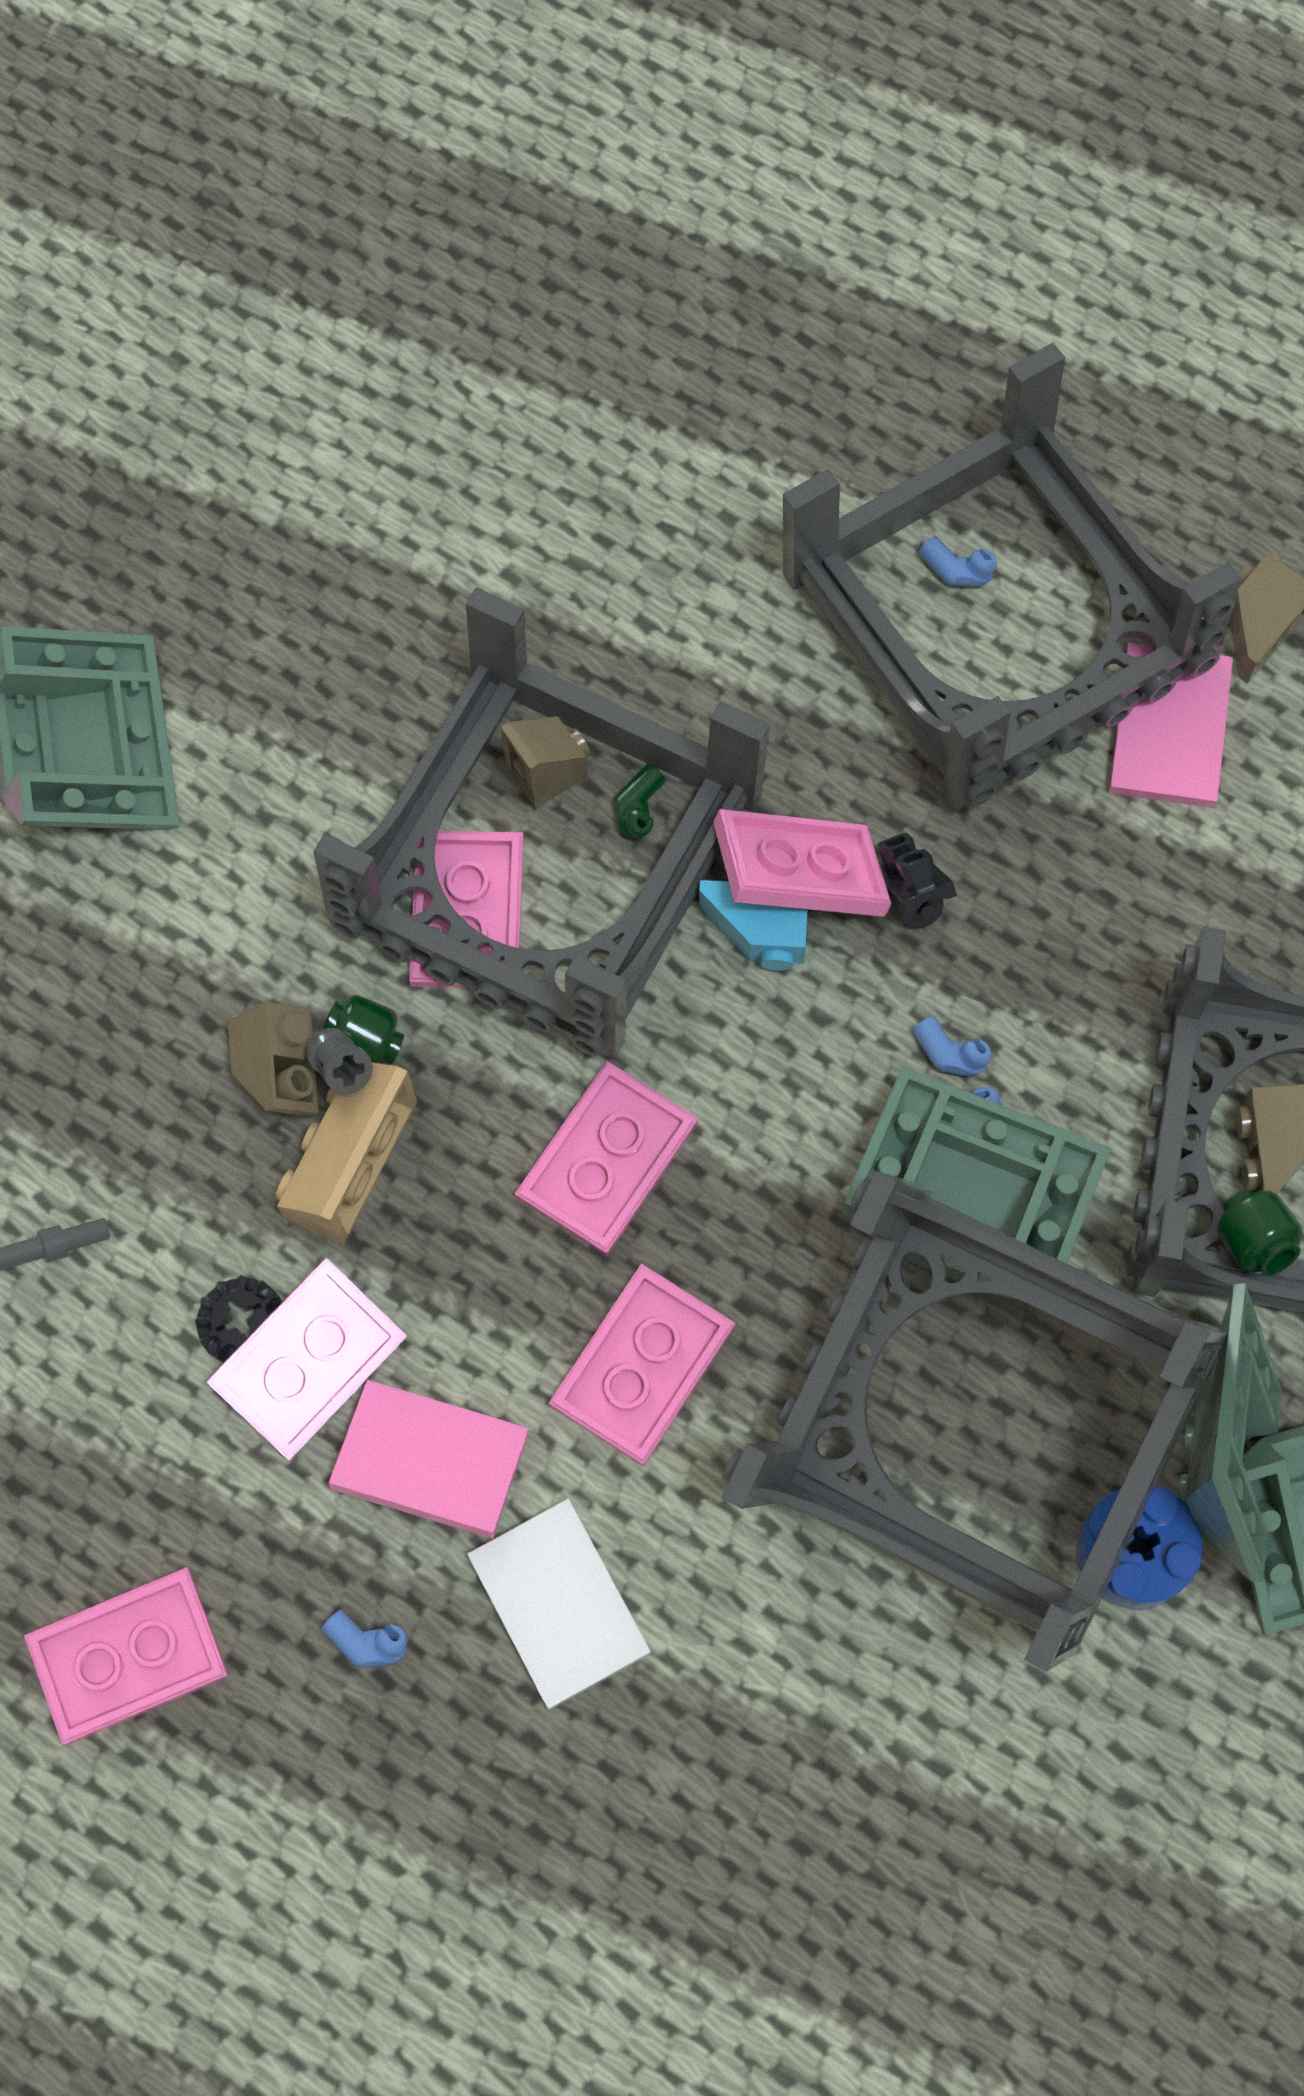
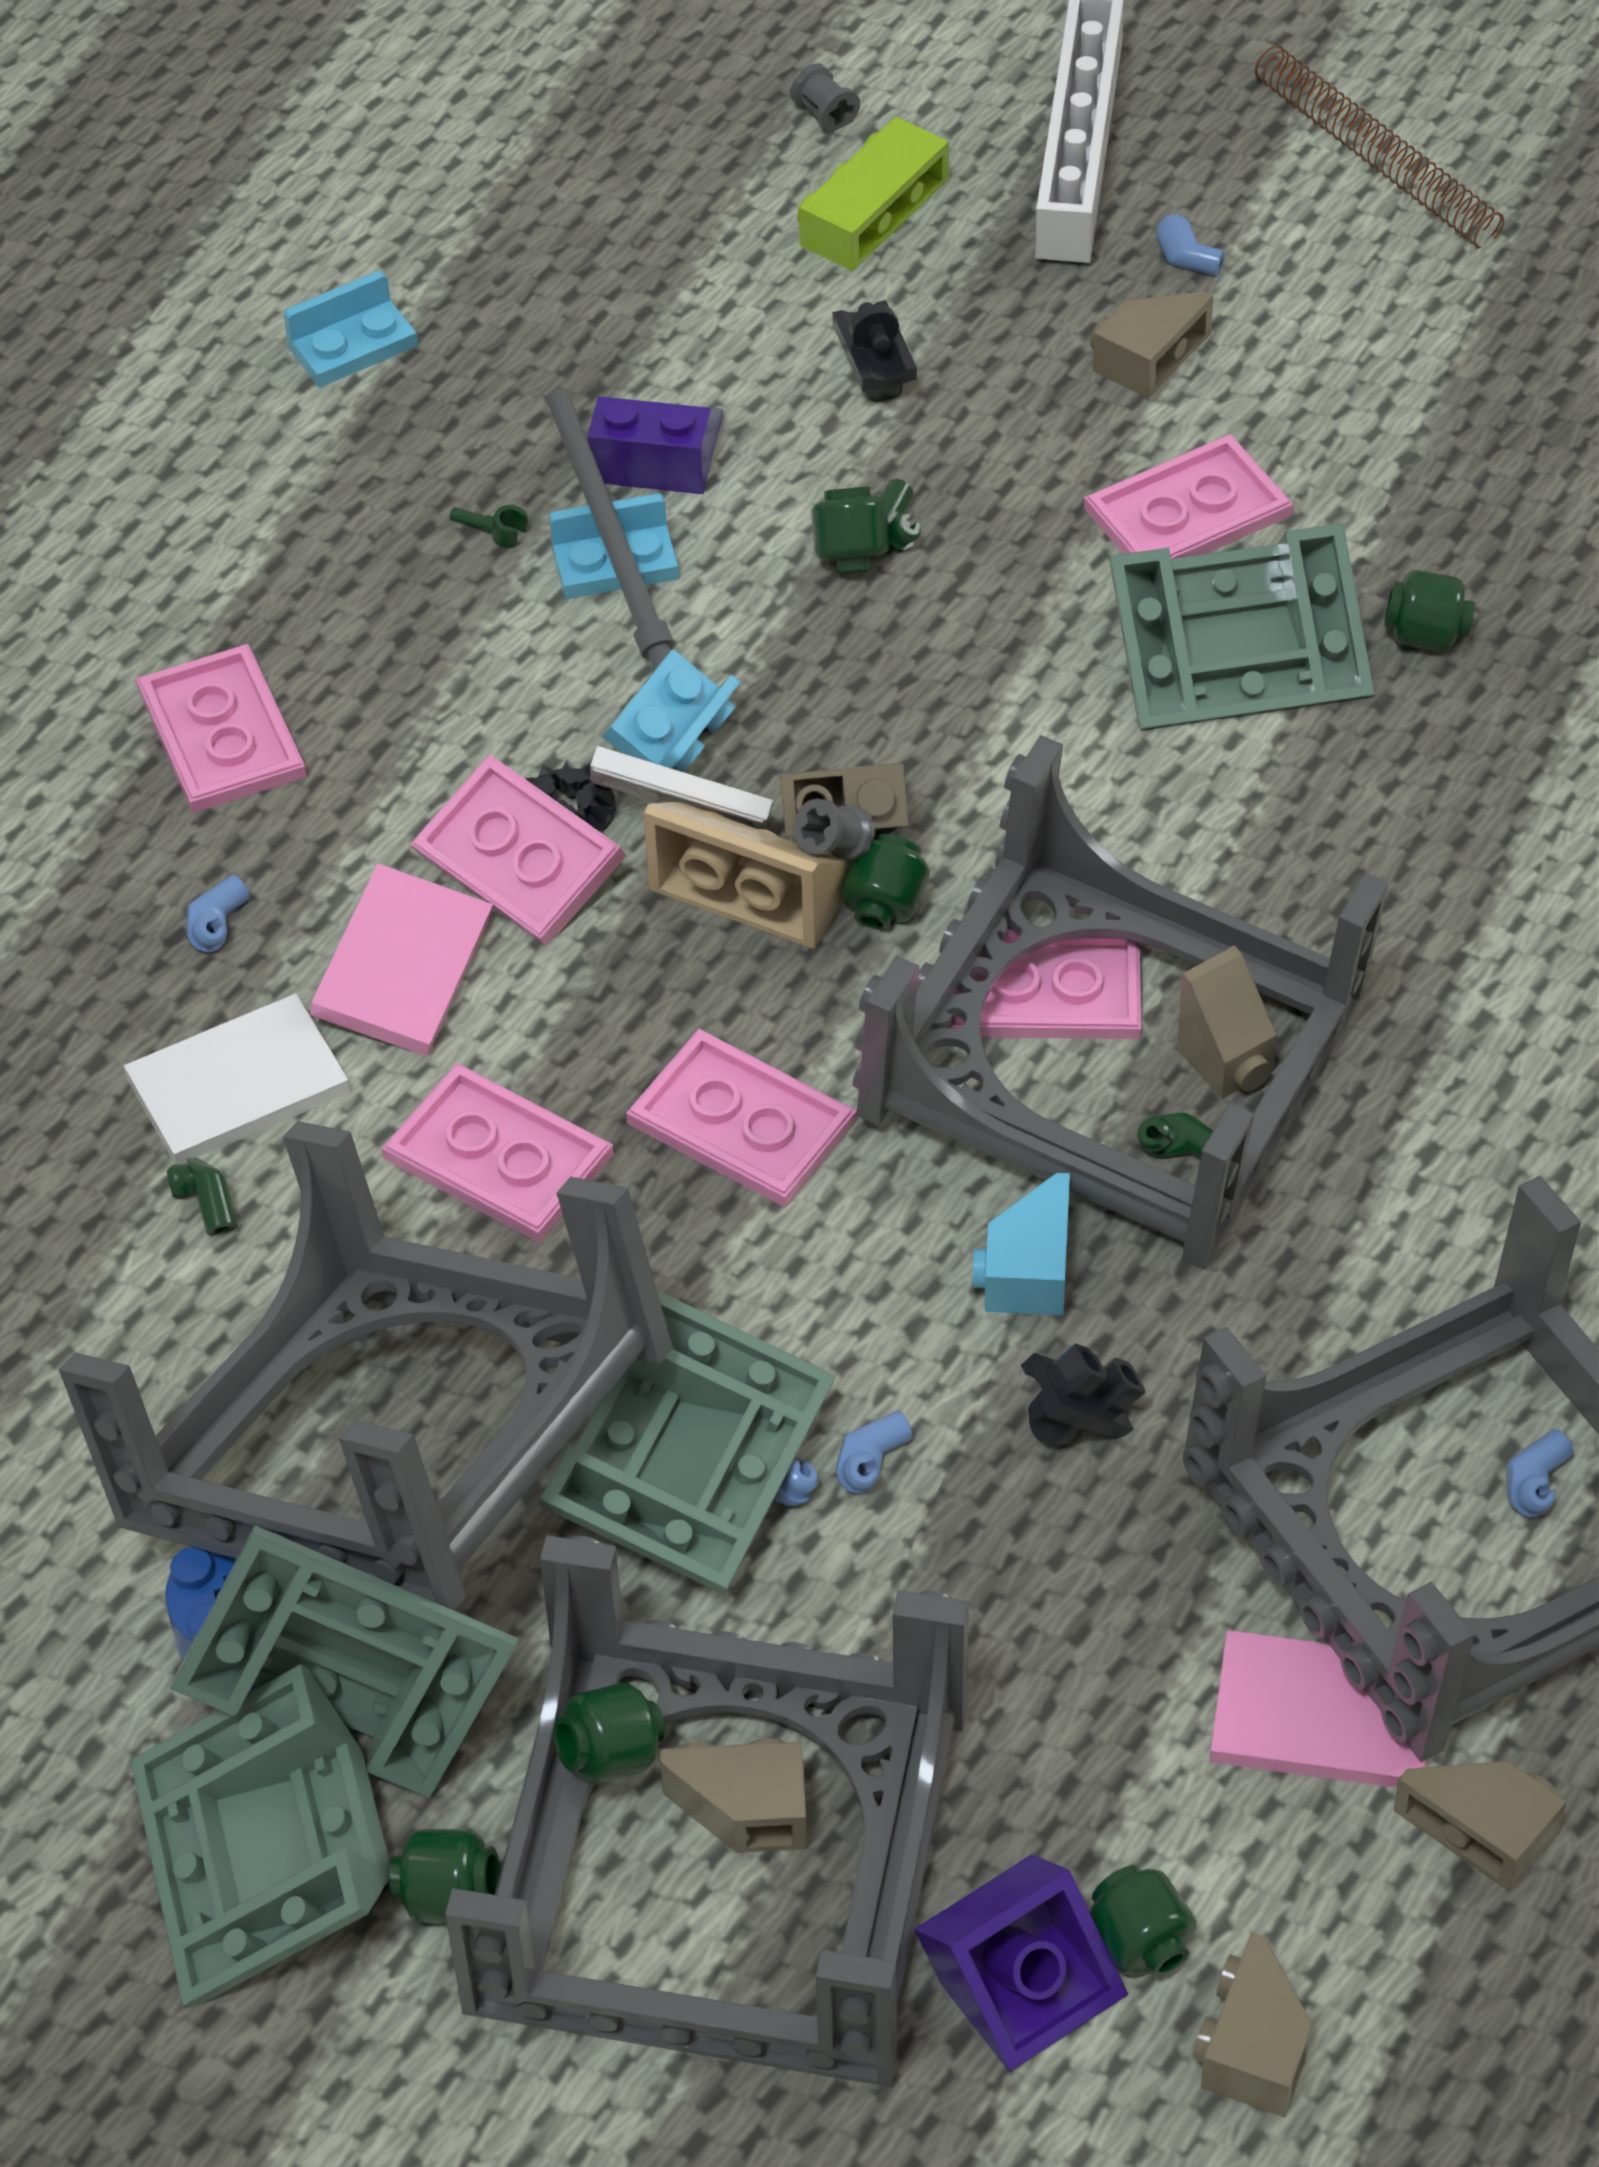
camera: 90 degrees right, 20 degrees down
(74, 580) = (1428, 611): none -> dark green head
(153, 1222) = (671, 713): none -> medium azure bracket
(255, 1209) = (670, 785): none -> white tile
(686, 1616) = (210, 1191): none -> dark green arm
(801, 863) = (1094, 1266): bright pink tile -> none

